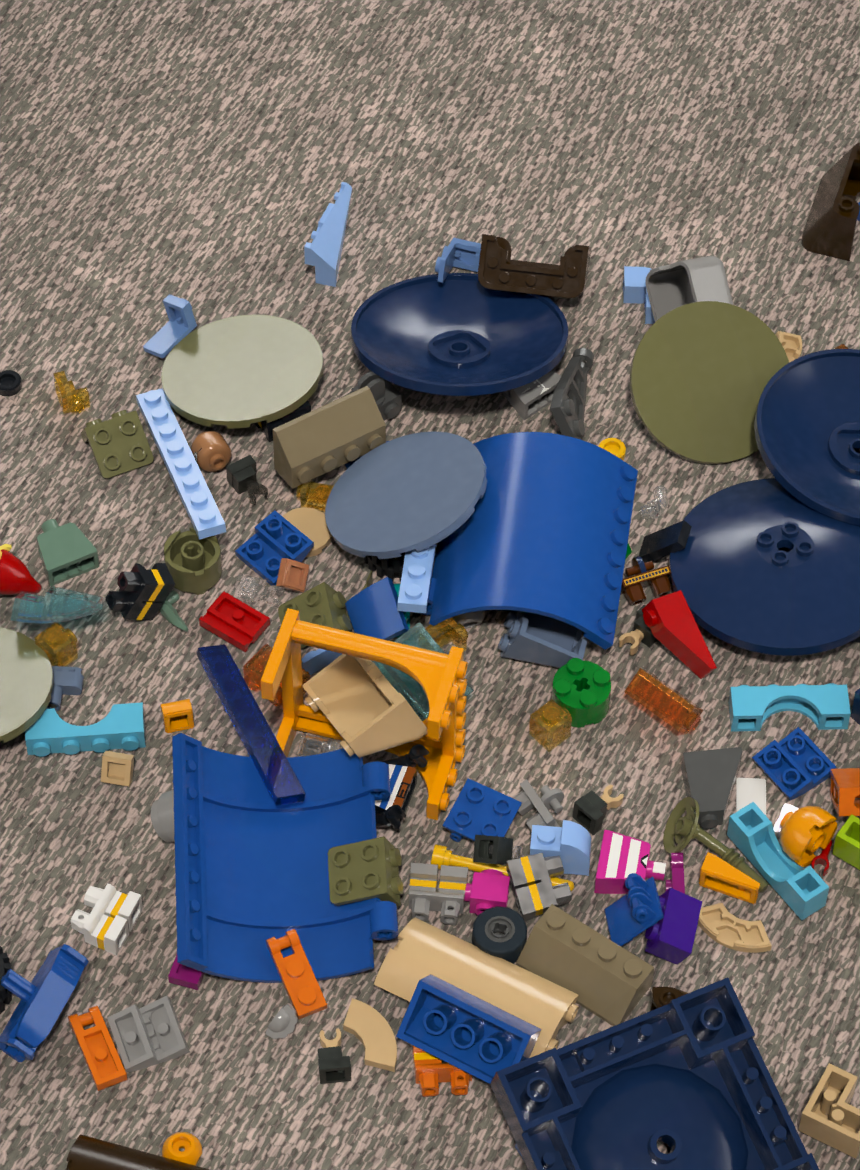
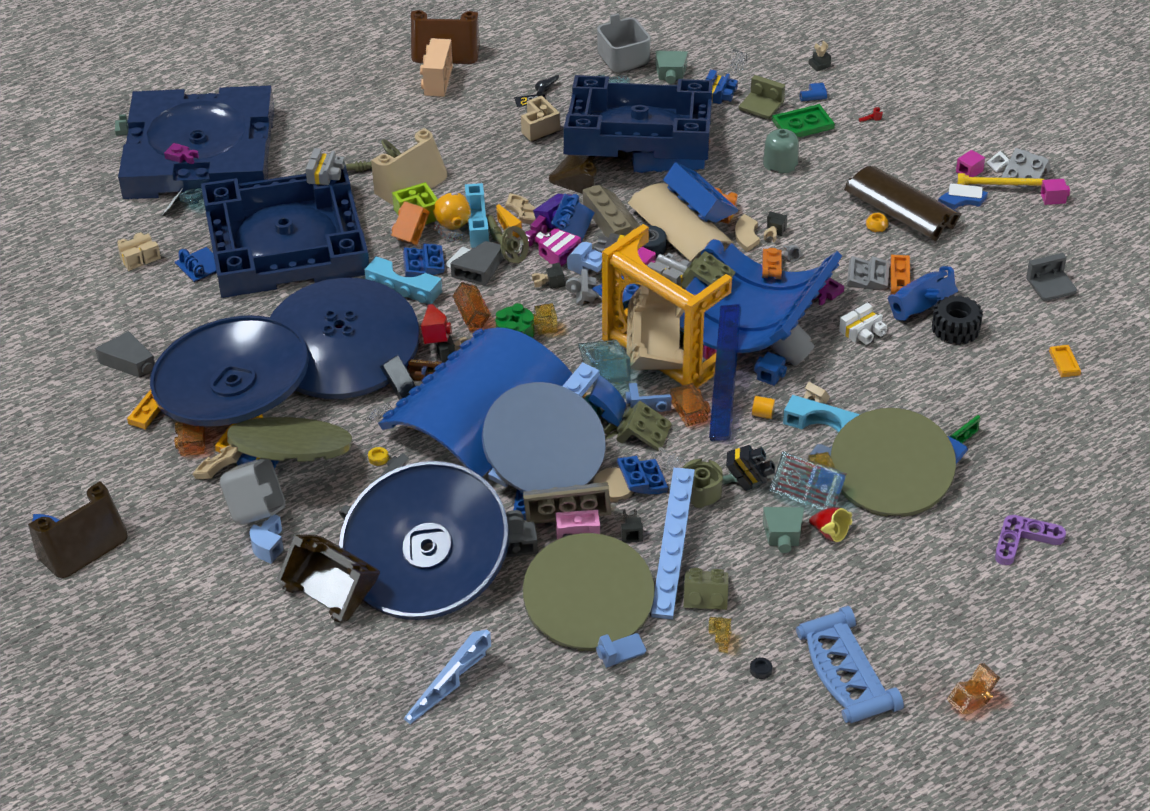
camera: 150 degrees left, 10 degrees down
(211, 451) = (647, 548): medium nougat head -> none
(234, 621) = (695, 445): red plate -> none
(292, 575) = (642, 451): nougat tile -> none
(458, 254) = (381, 613): medium blue bracket -> none

